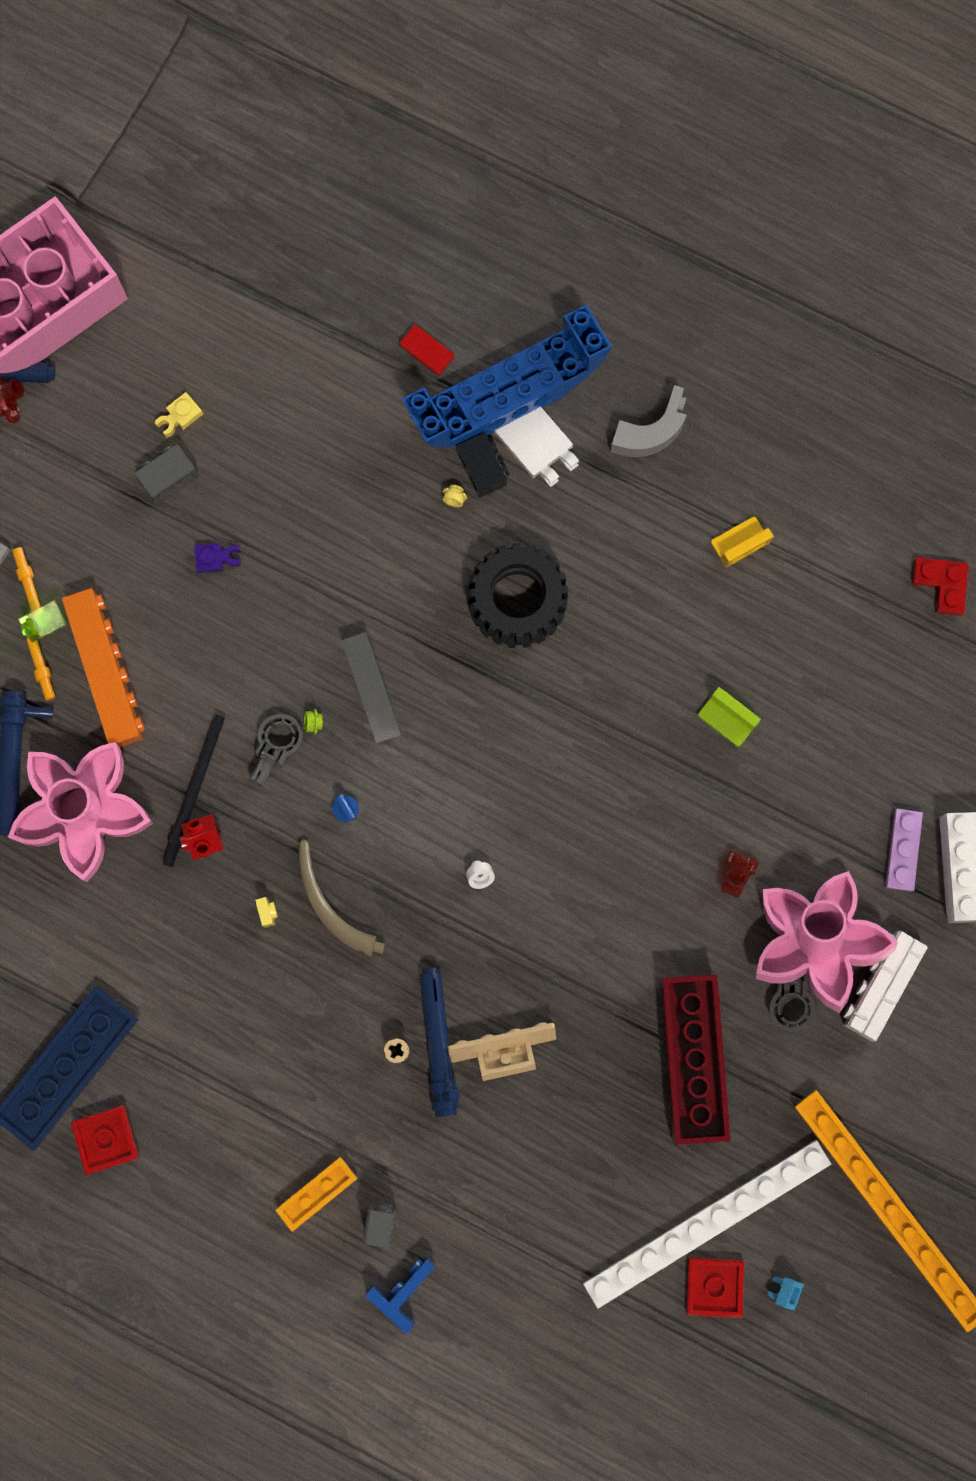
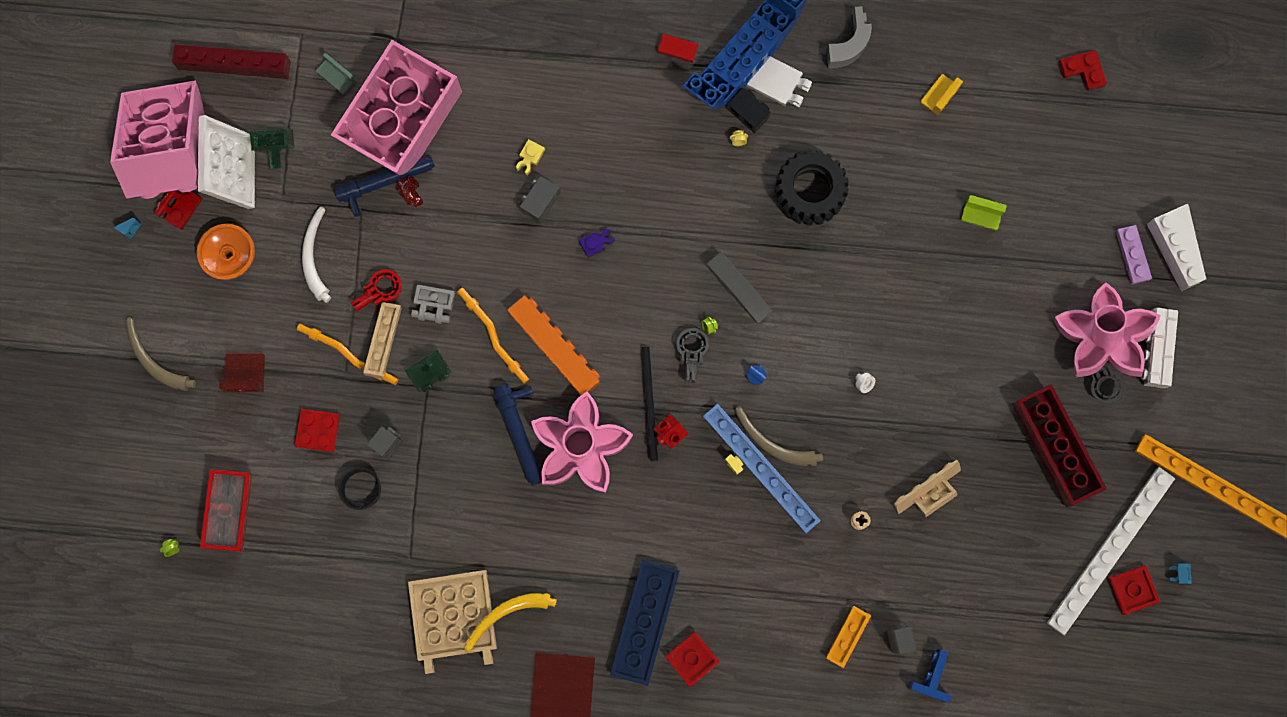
camera: 20 degrees left, 0 degrees up
(42, 622) = (500, 331): clear neon green brick -> none
(299, 932) = (761, 468): none -> medium blue plate
(442, 1086) = (900, 531): dark blue cylinder -> none
(738, 869) = (1032, 311): clear red plate -> none

